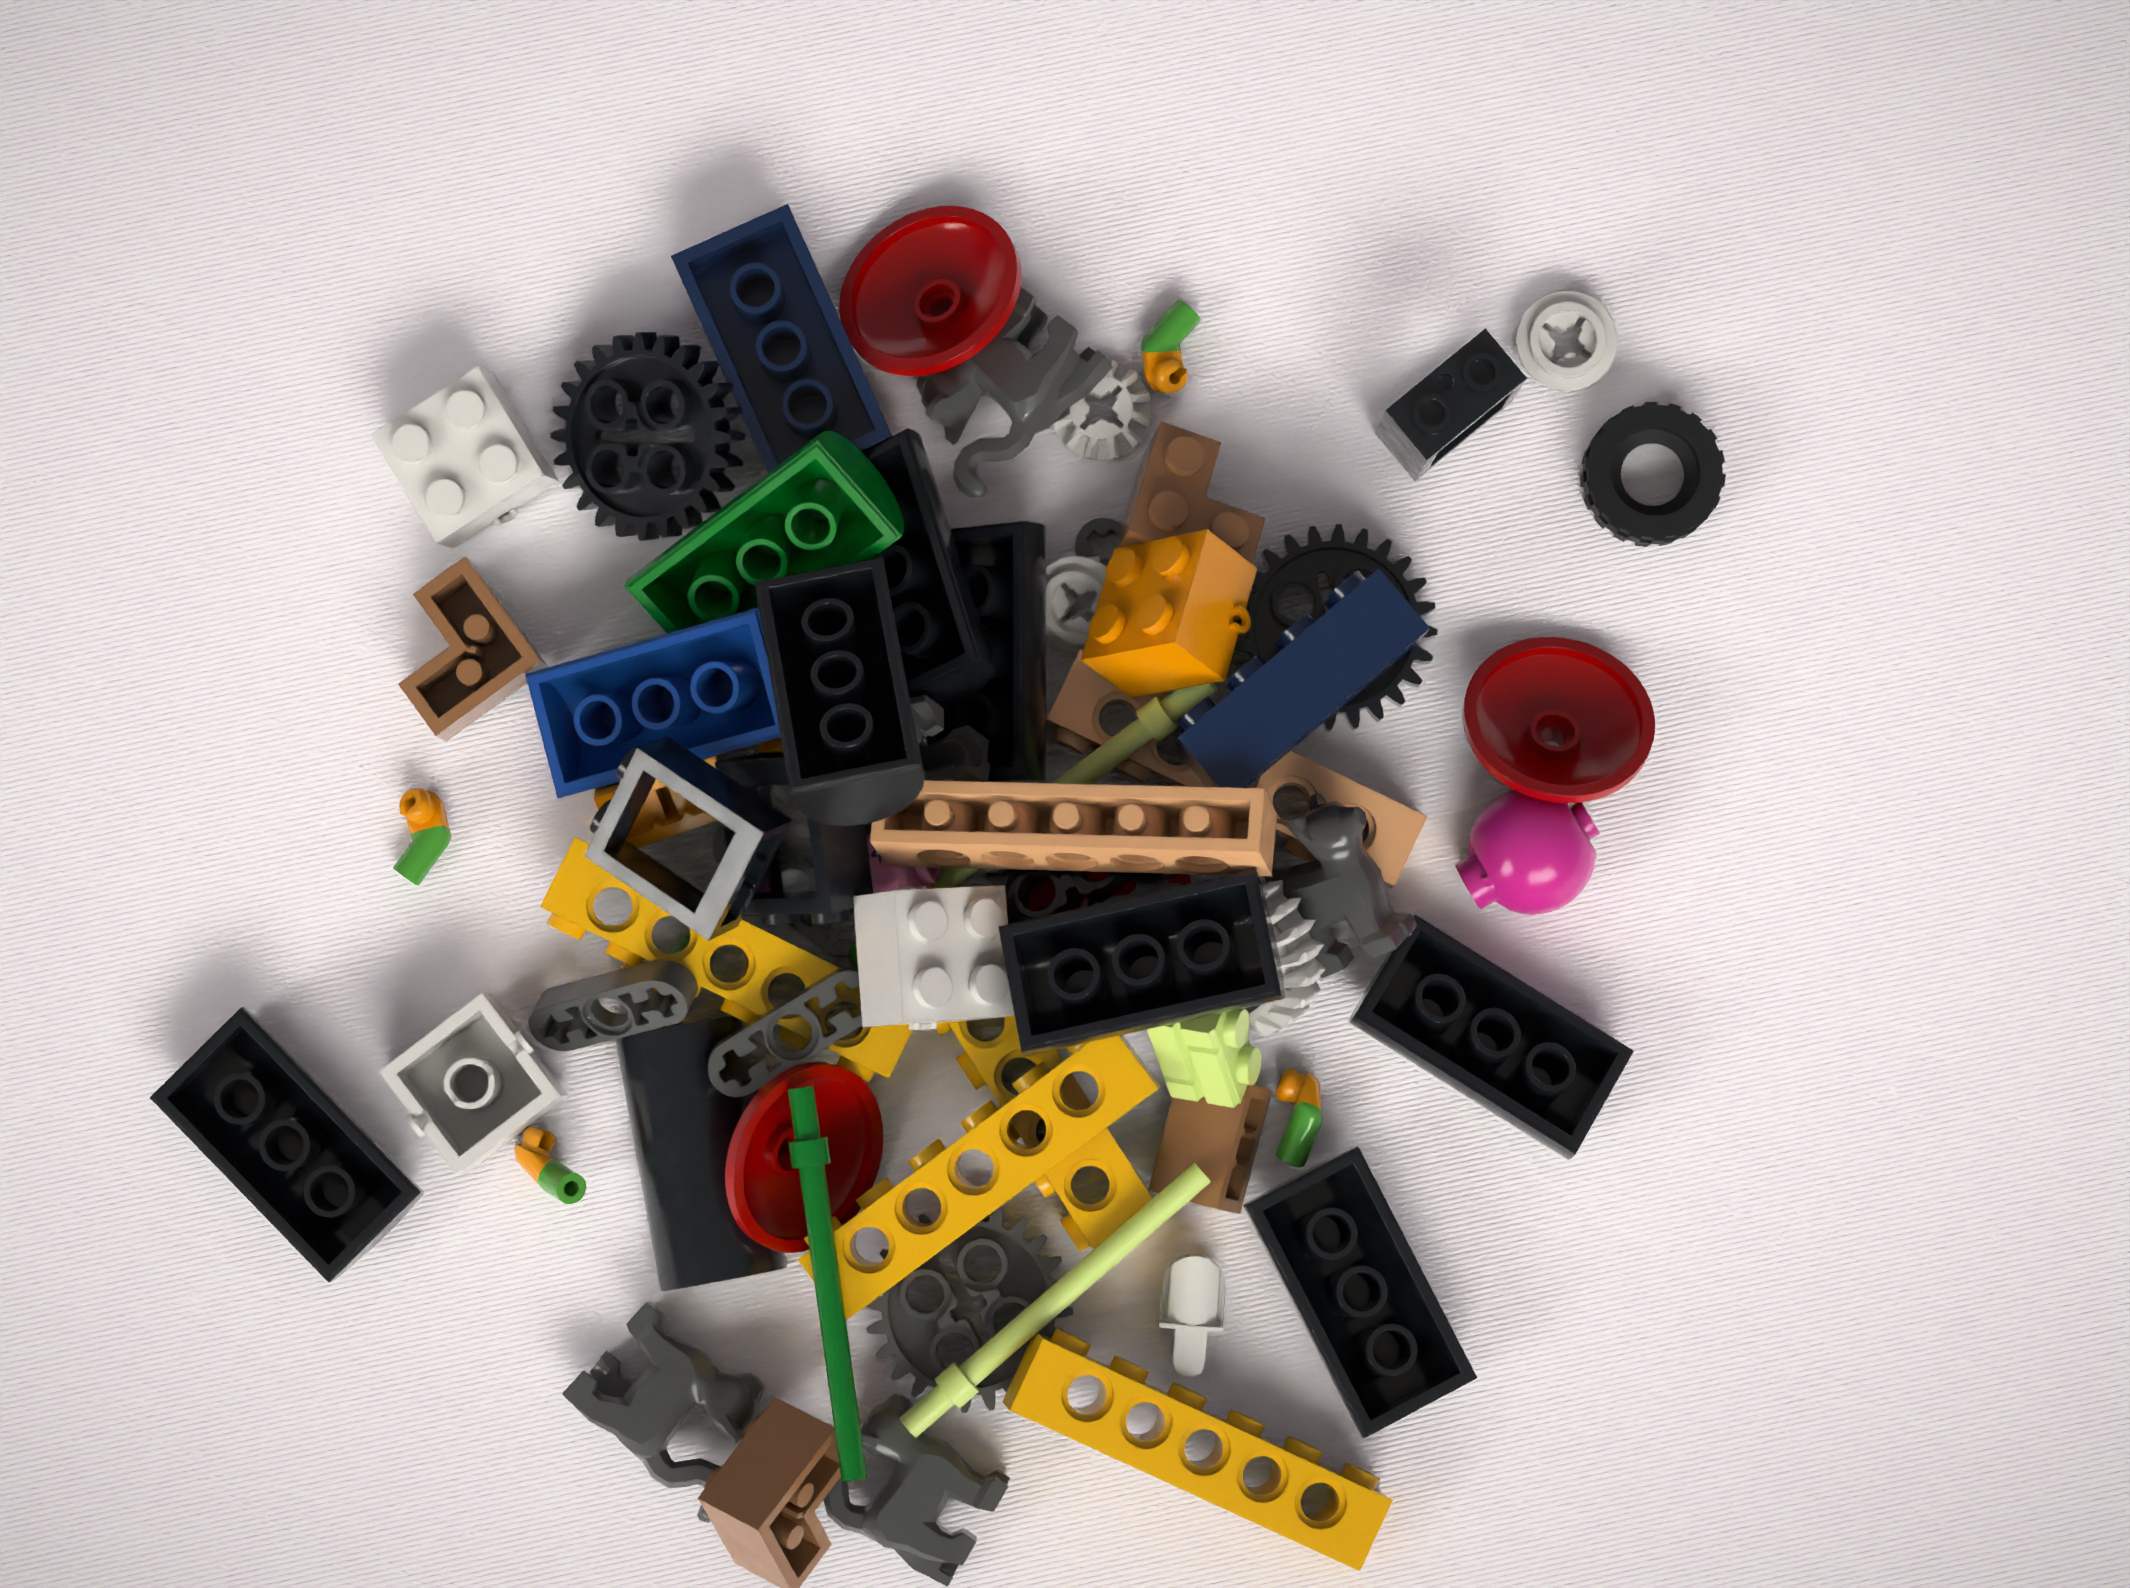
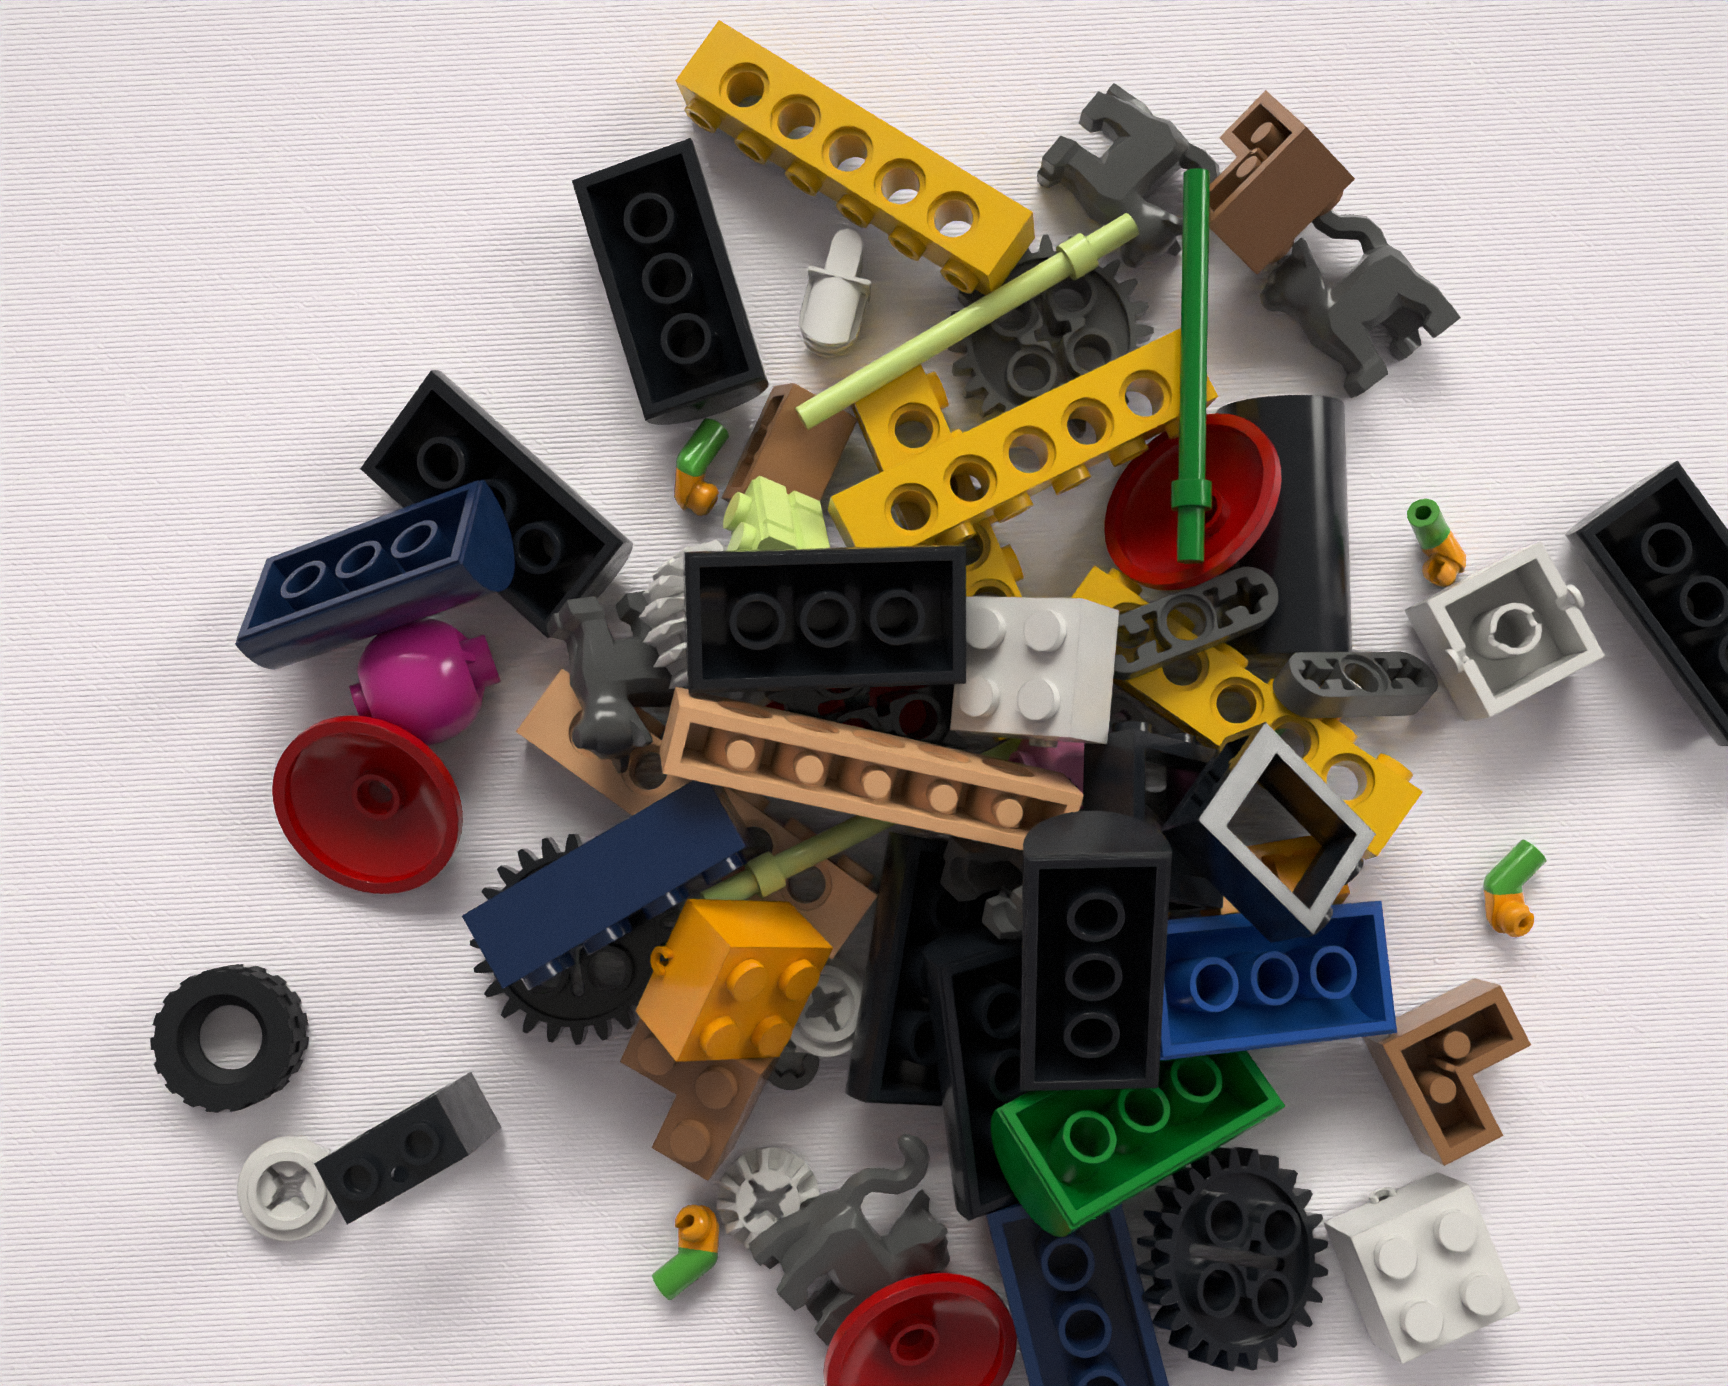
camera: 170 degrees left, 0 degrees up
(1588, 943) = (378, 577): none -> dark blue brick

